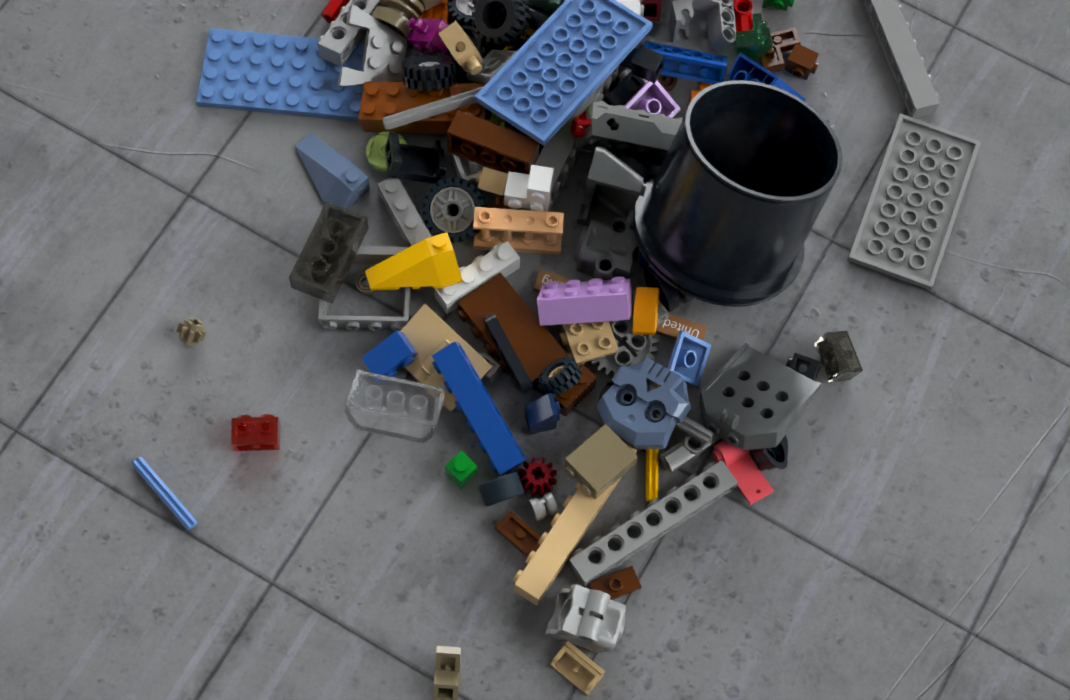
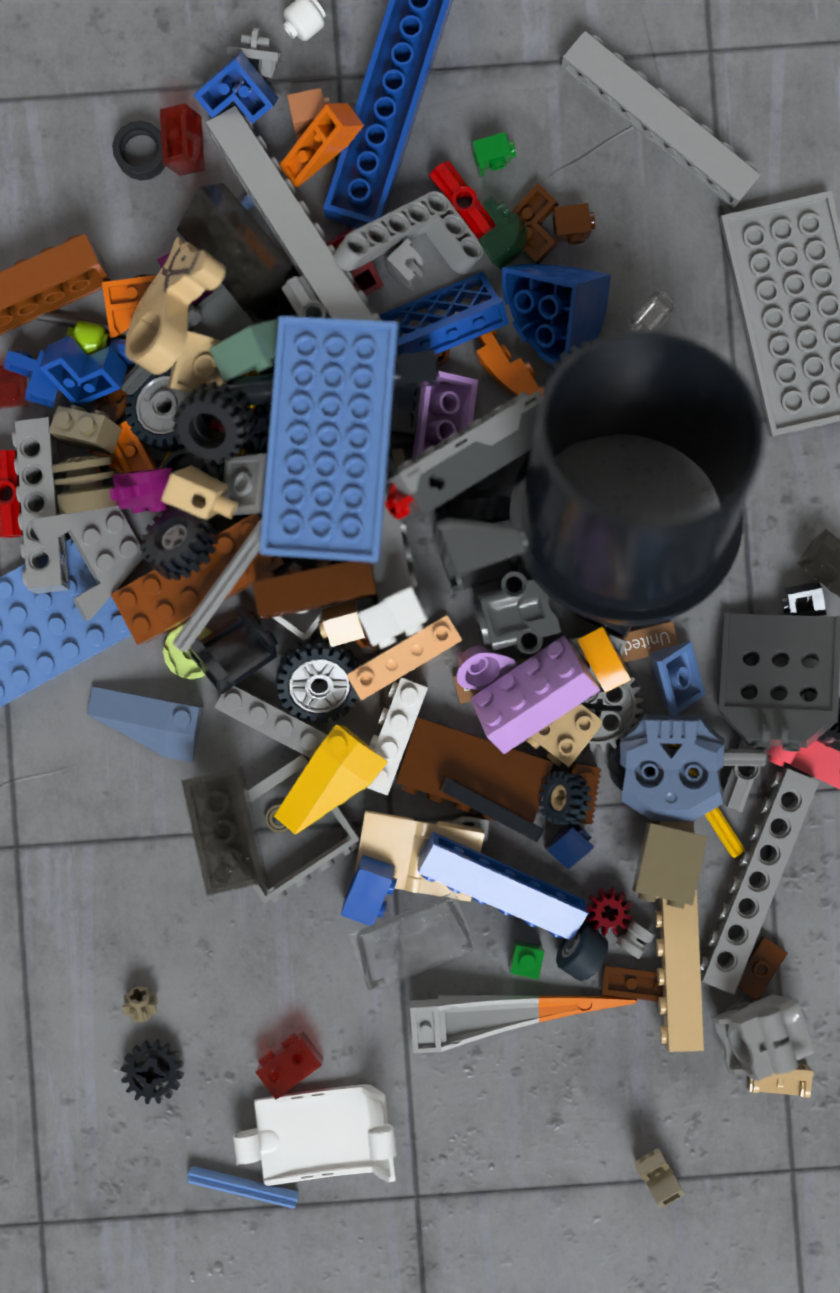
camera: 30 degrees left, 20 degrees up
(163, 388) = (141, 1072): none -> black gear
(237, 491) = (320, 1135): none -> white panel
(388, 479) = (467, 1018): none -> light grey plate
(562, 267) = (481, 667): none -> lavender piece

